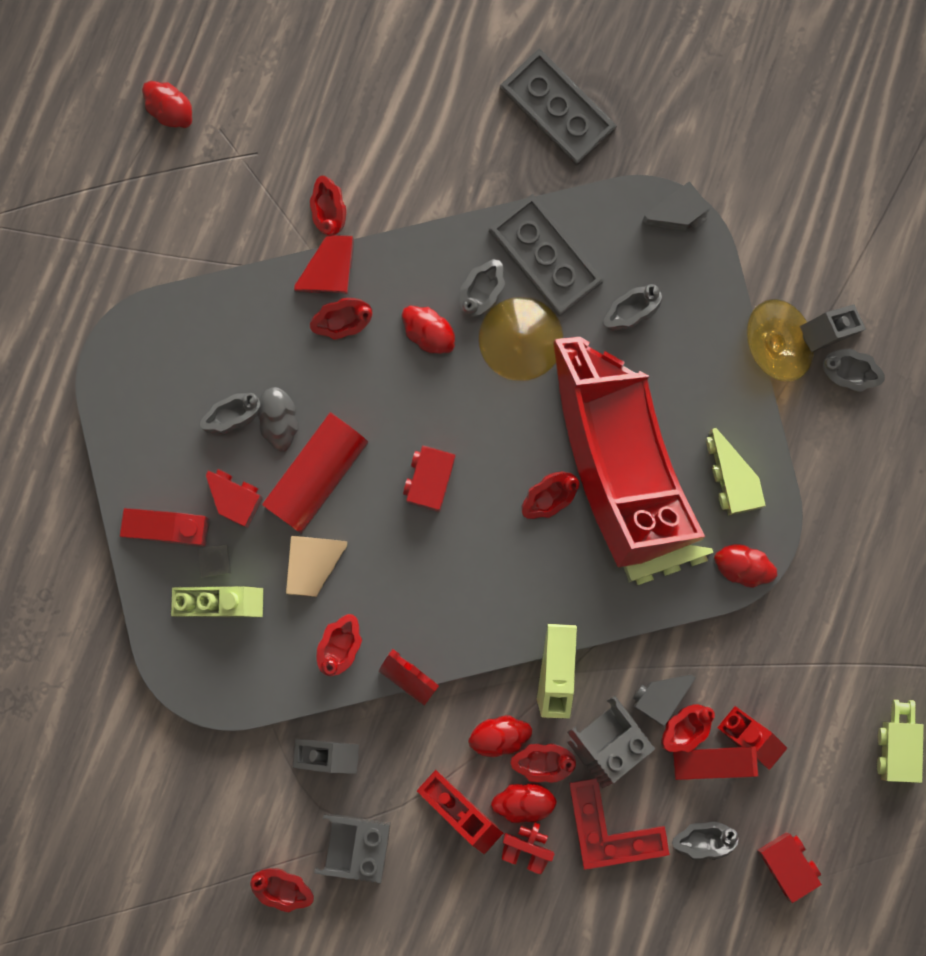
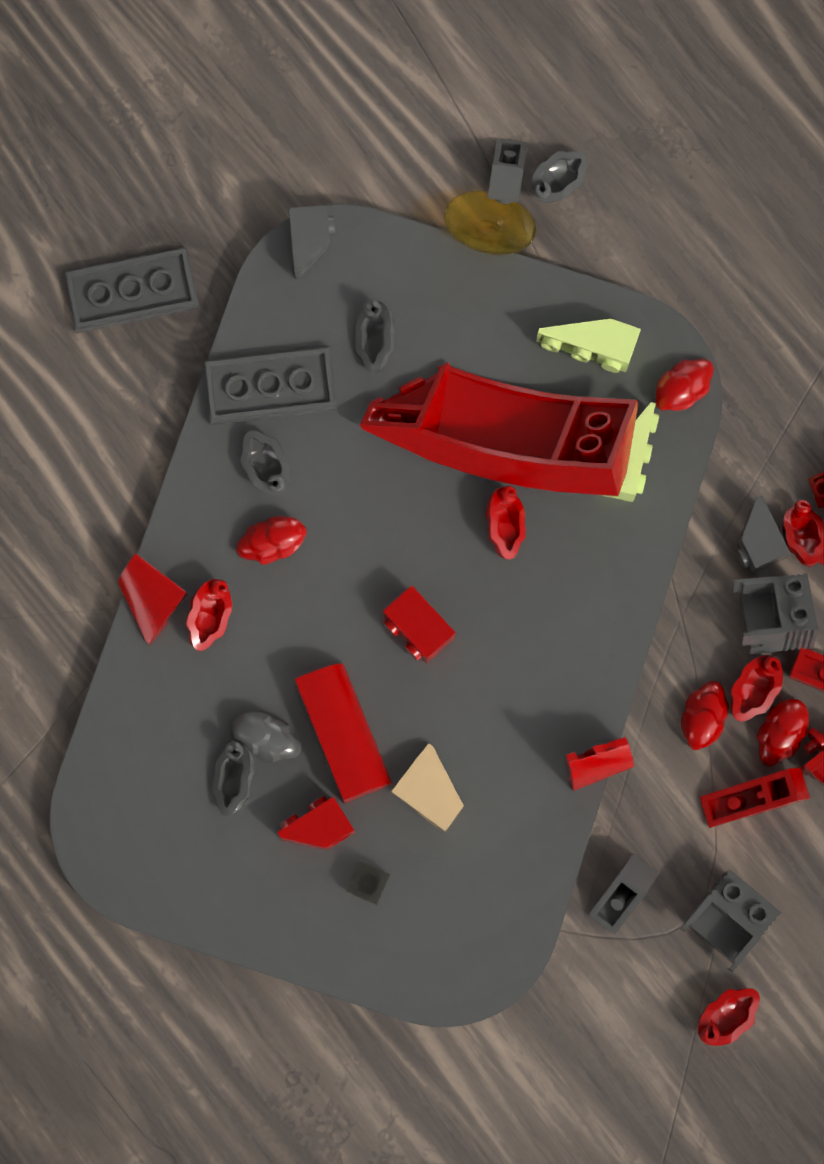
camera: 60 degrees left, 5 degrees down
(165, 527) = (303, 912): red slope -> none
(217, 602) = (409, 905): yellowish green slope -> none
(327, 206) = (87, 563): red arm -> none
(339, 645) = (527, 811): red arm -> none
(519, 338) = (335, 459): clear yellow hat -> none
(557, 672) = (679, 619): yellowish green slope -> none

